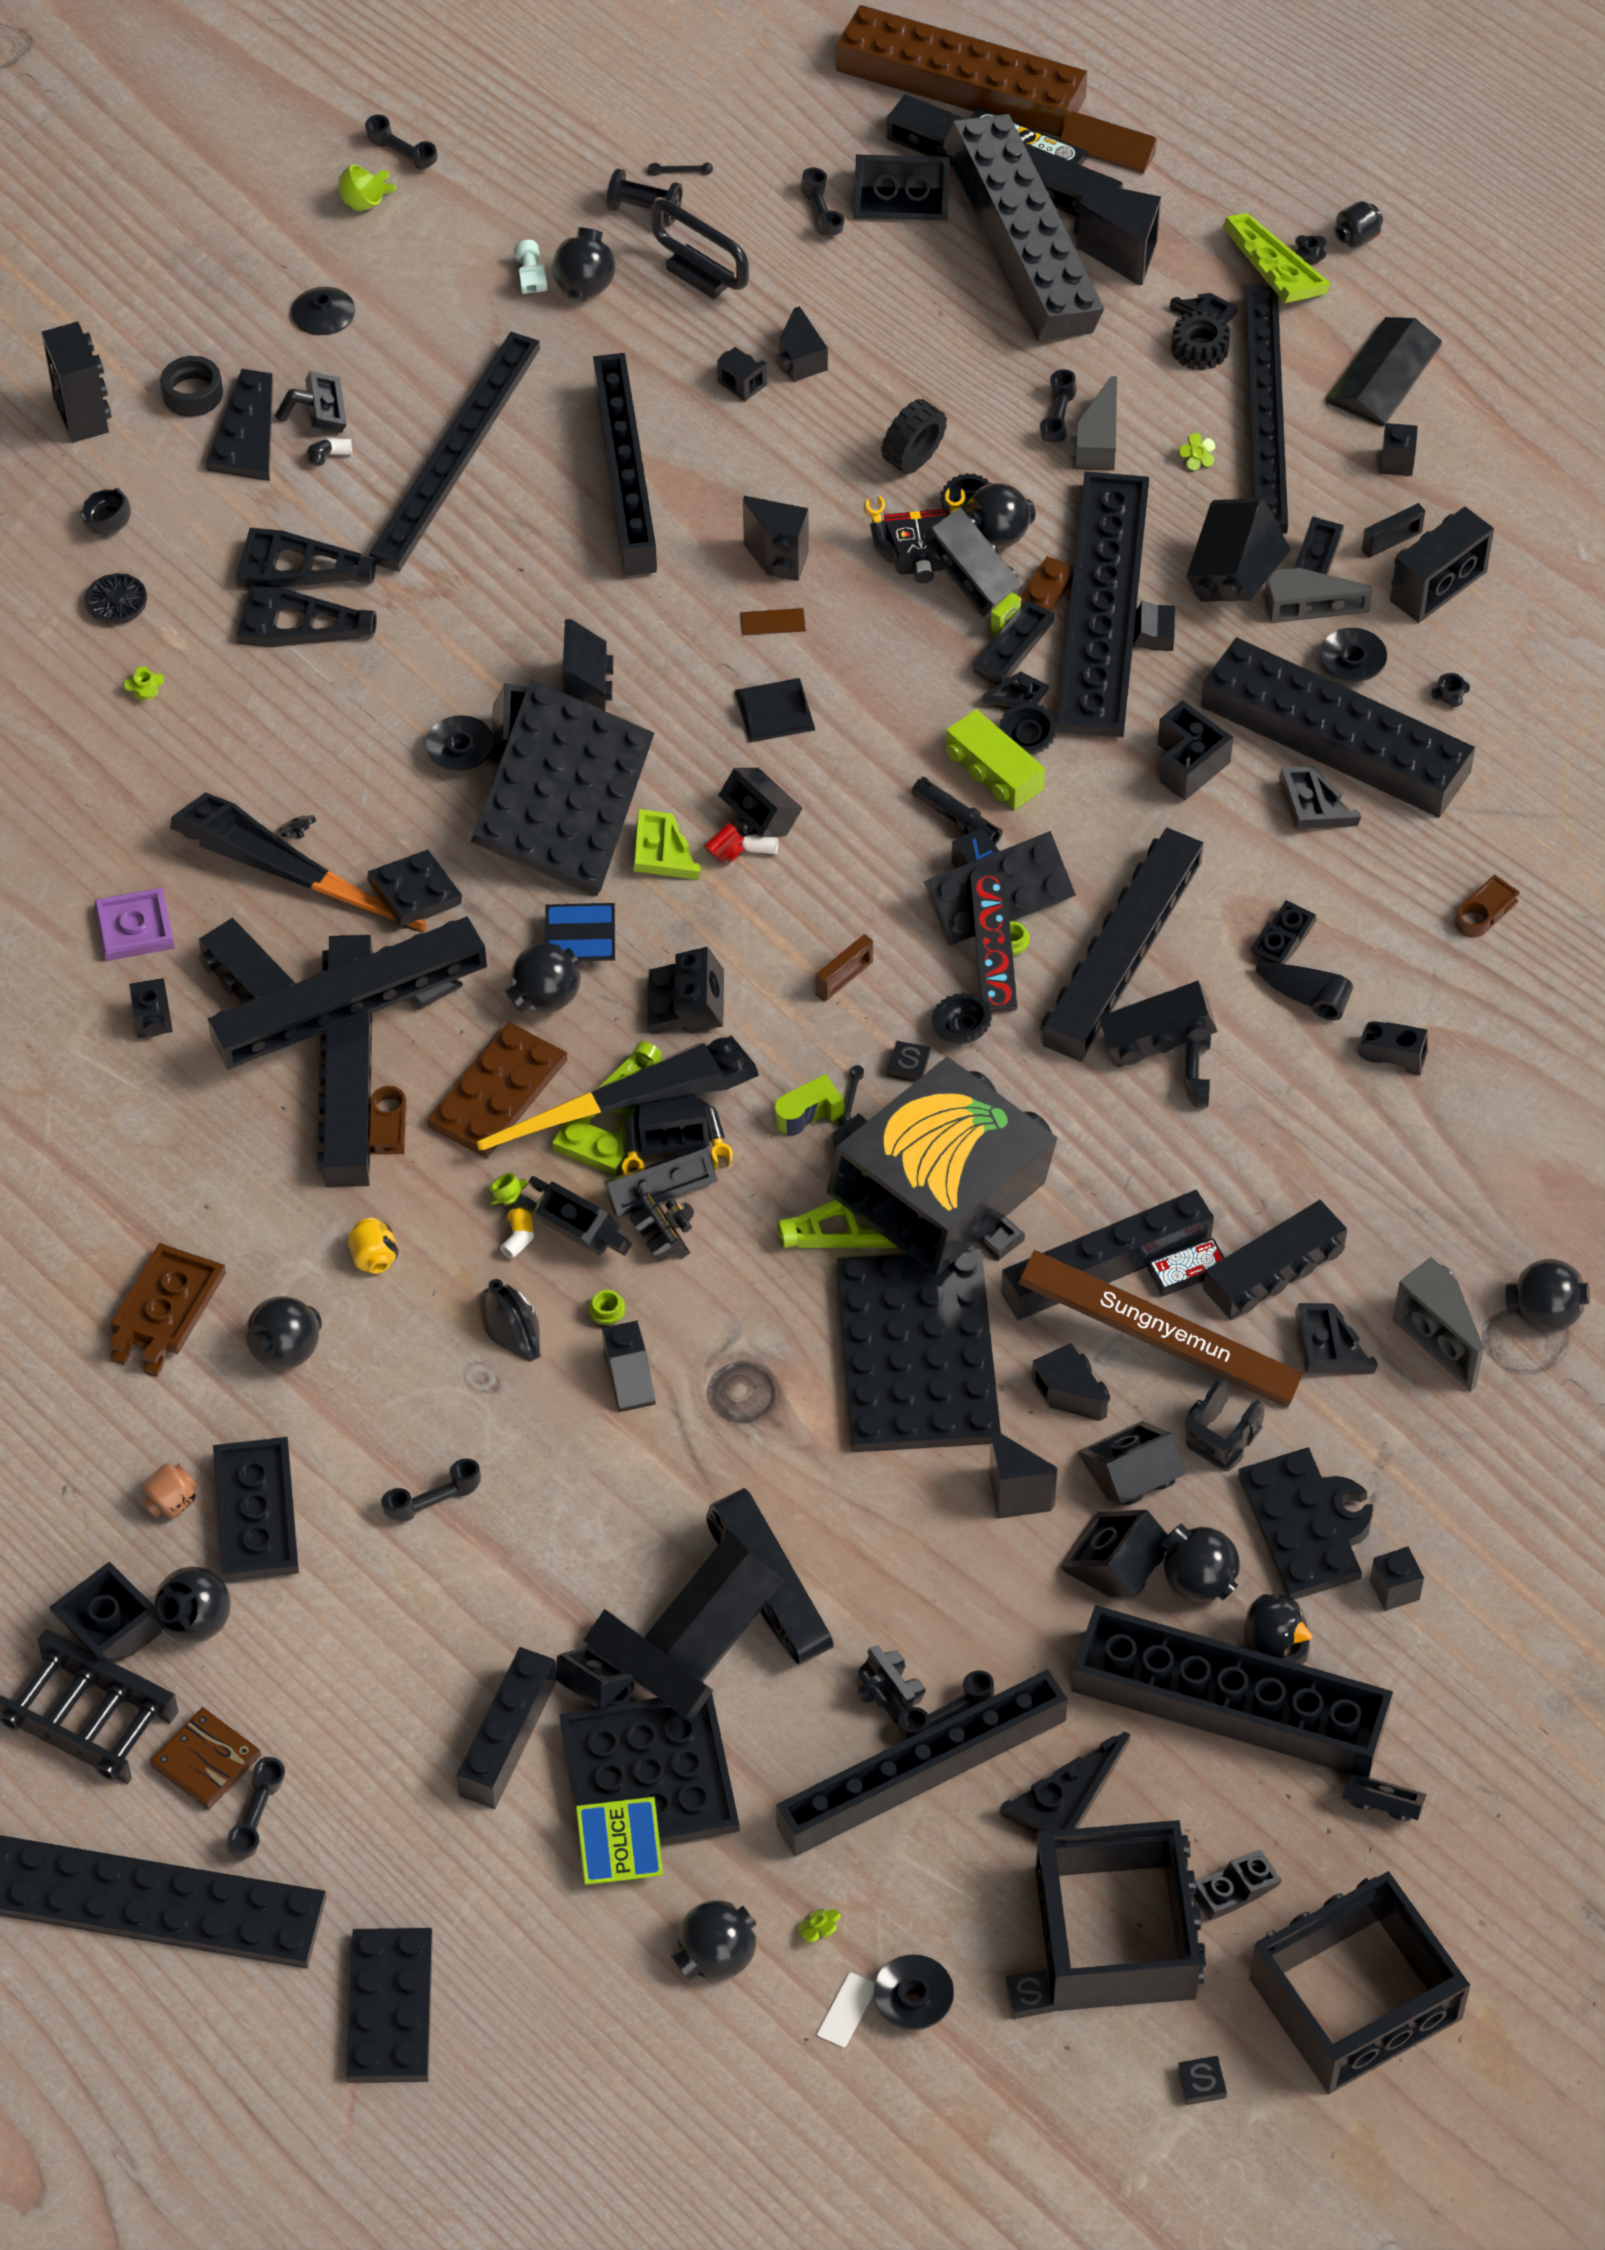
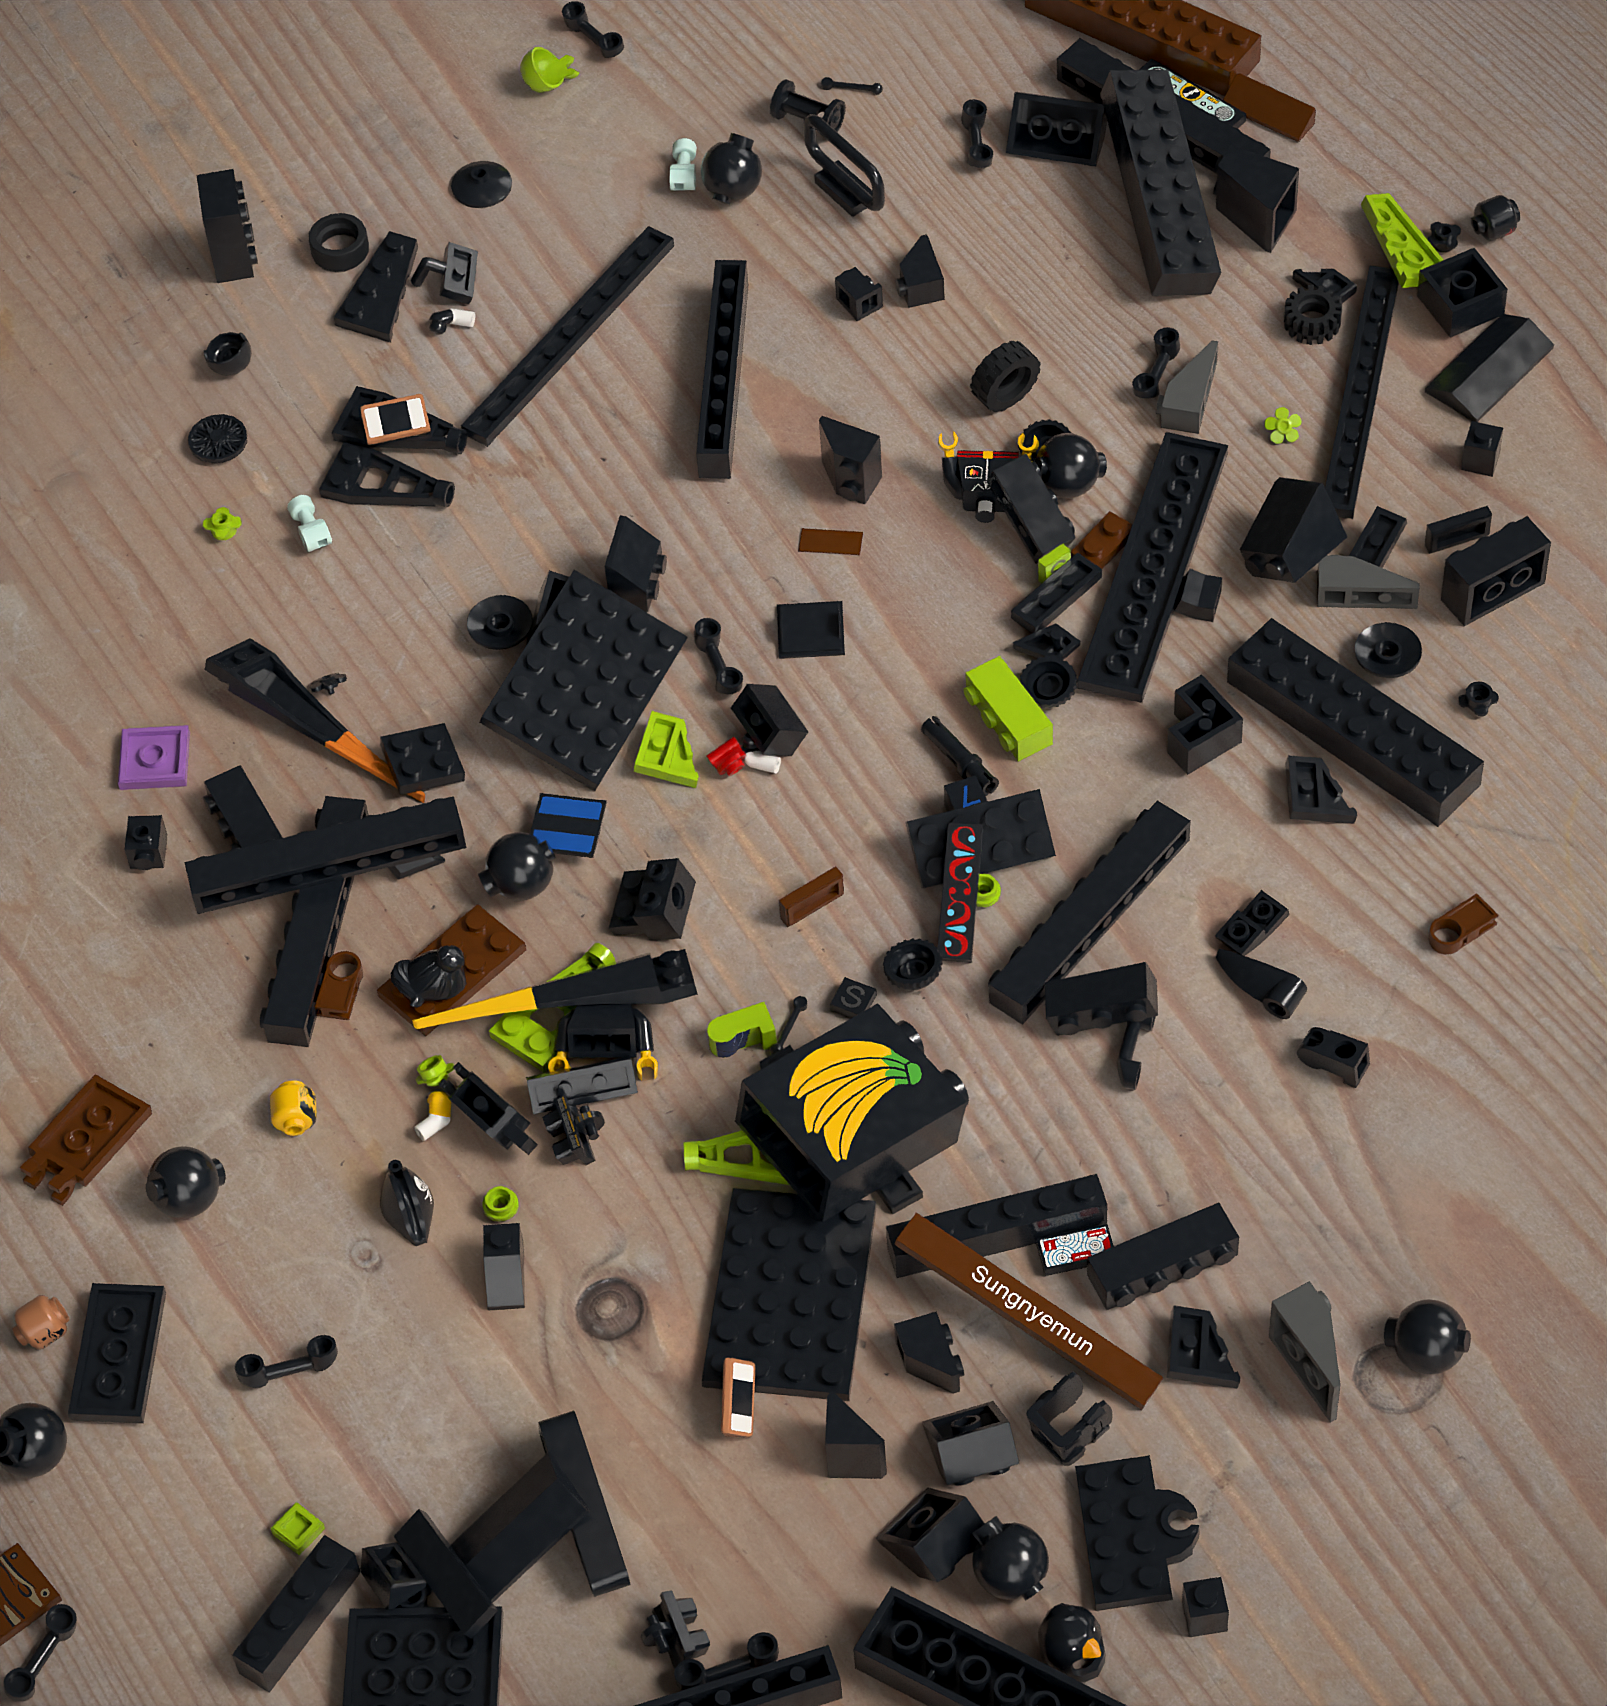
camera: 15 degrees right, 0 degrees up
(240, 679) = (312, 532): none -> light aqua leg
(301, 554) = (395, 419): none -> slope
(483, 1649) = (297, 1528): none -> lime tile
(484, 1095) = (431, 975): none -> black hair
(673, 731) = (707, 639): none -> black bar
(894, 1455) = (738, 1398): none -> slope
(1344, 300) = (1462, 292): none -> black brick

